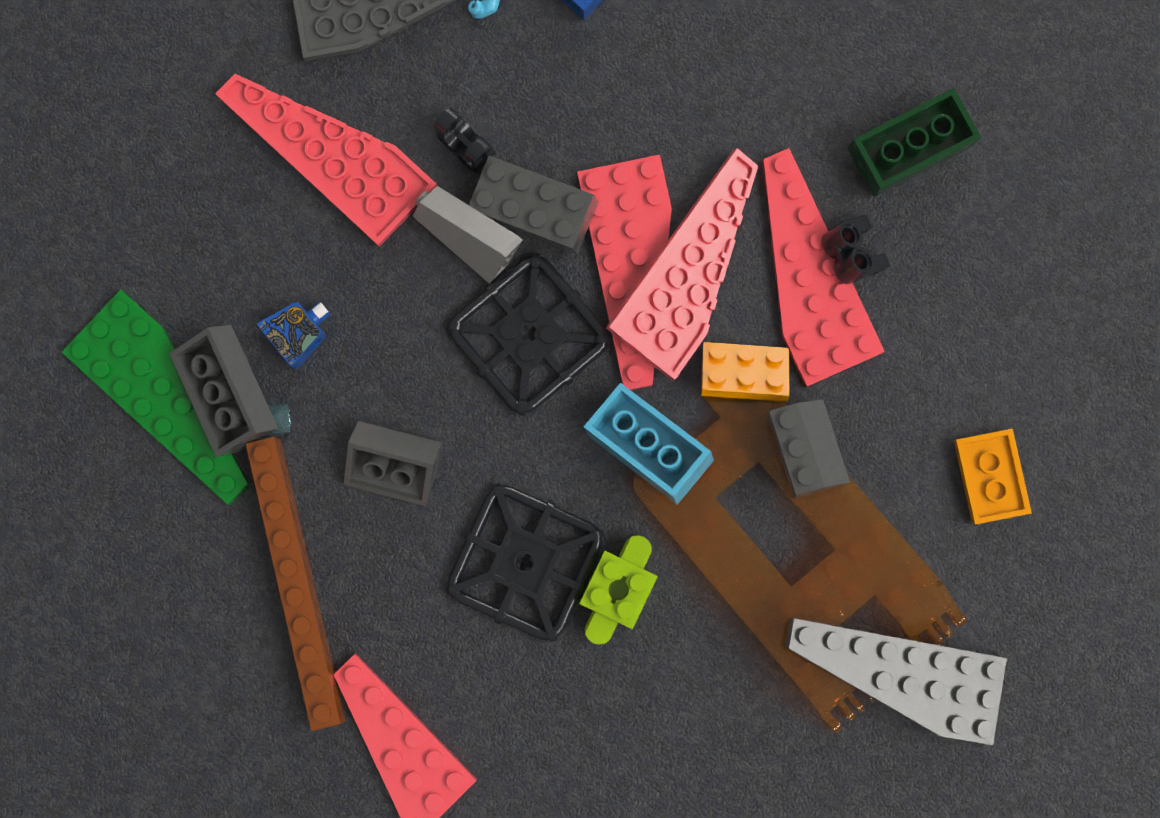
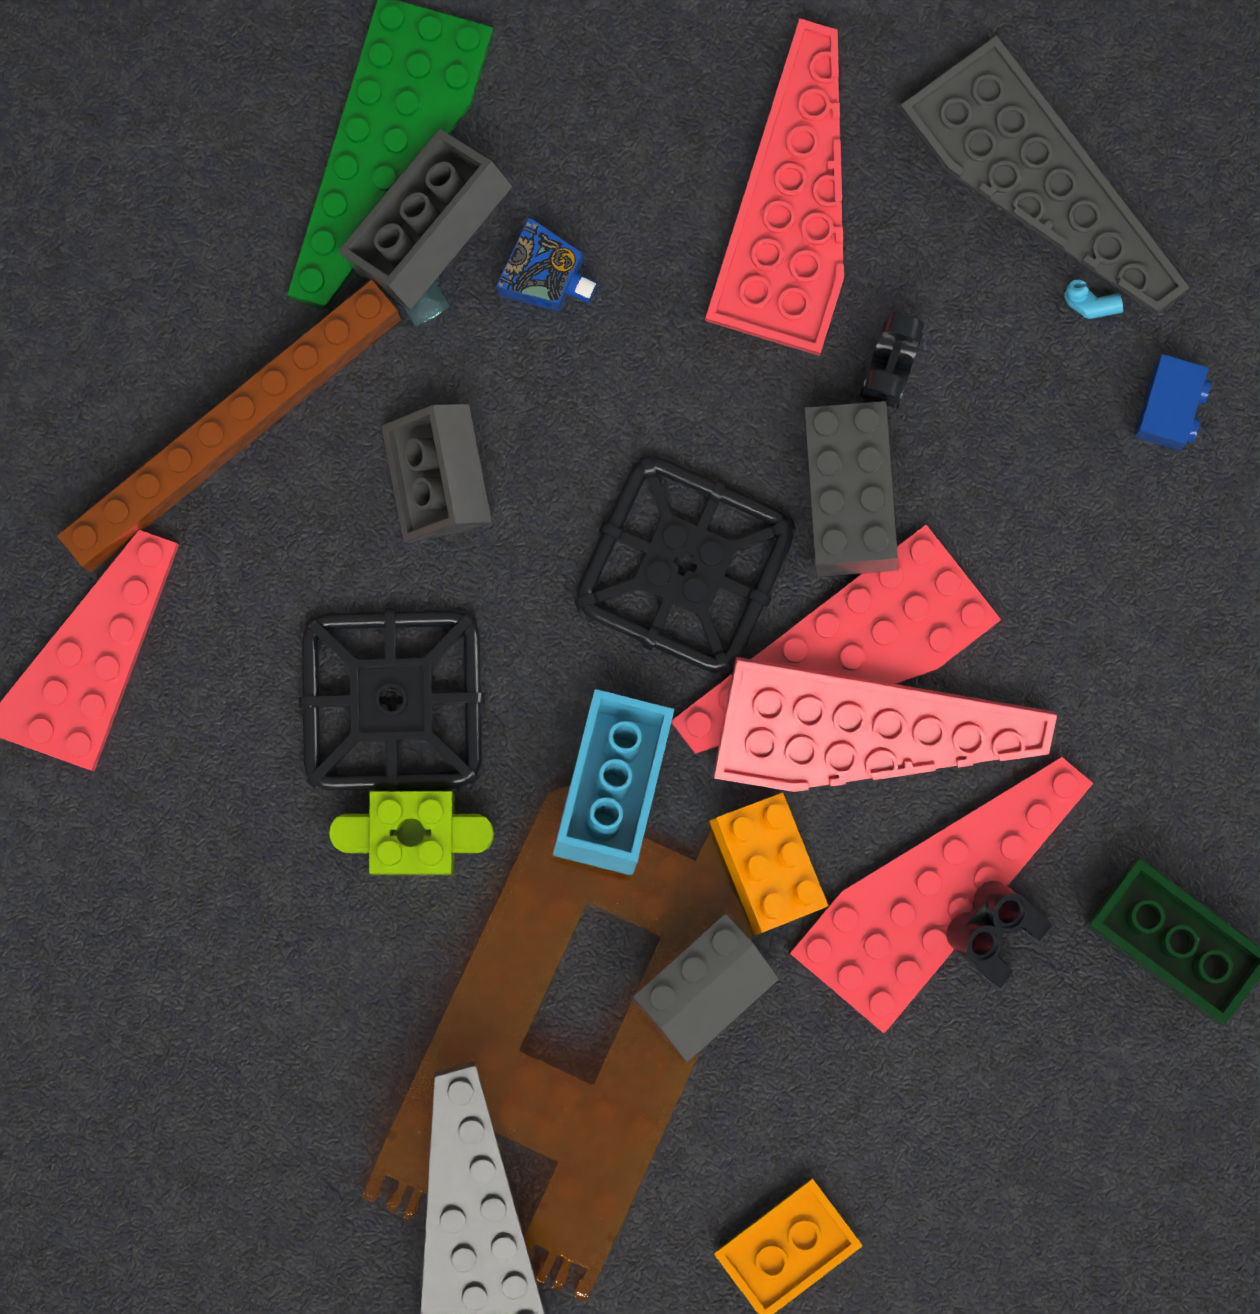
camera: 70 degrees right, 0 degrees up
(467, 232) = (774, 422): light grey slope -> none

